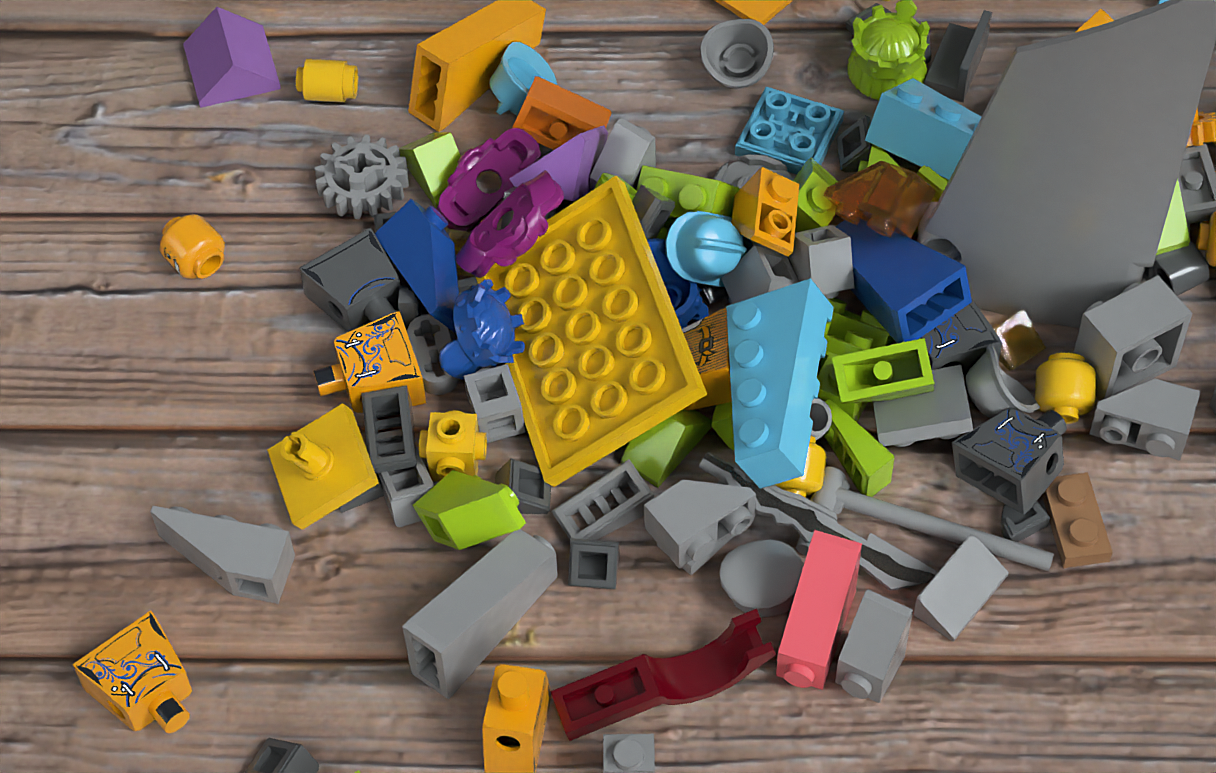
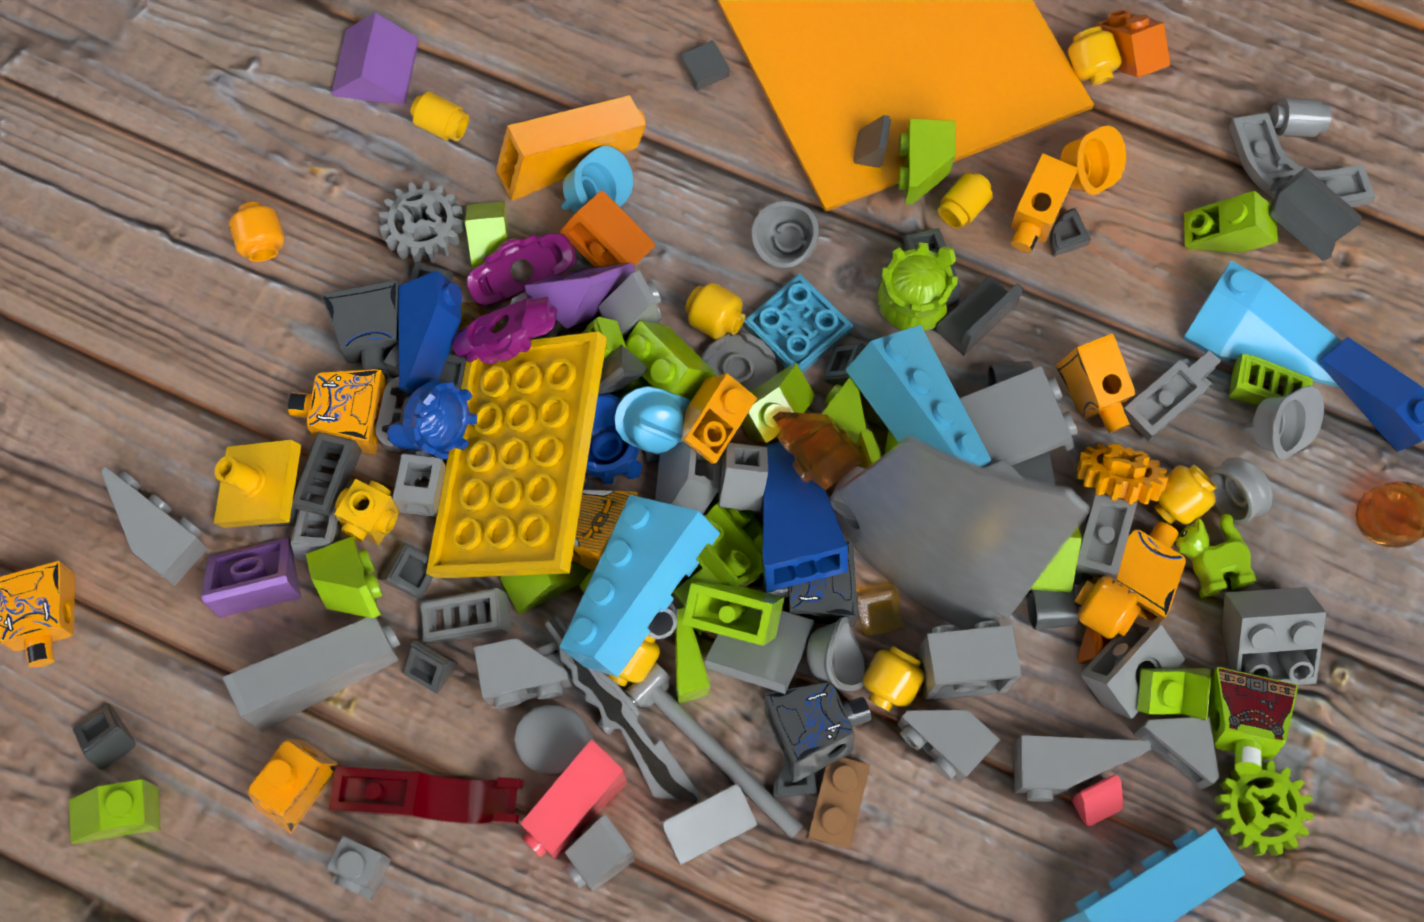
camera: 20 degrees right, 15 degrees up
(365, 557) = (250, 578): none -> medium lavender slope
(703, 145) = (715, 310): none -> yellow head

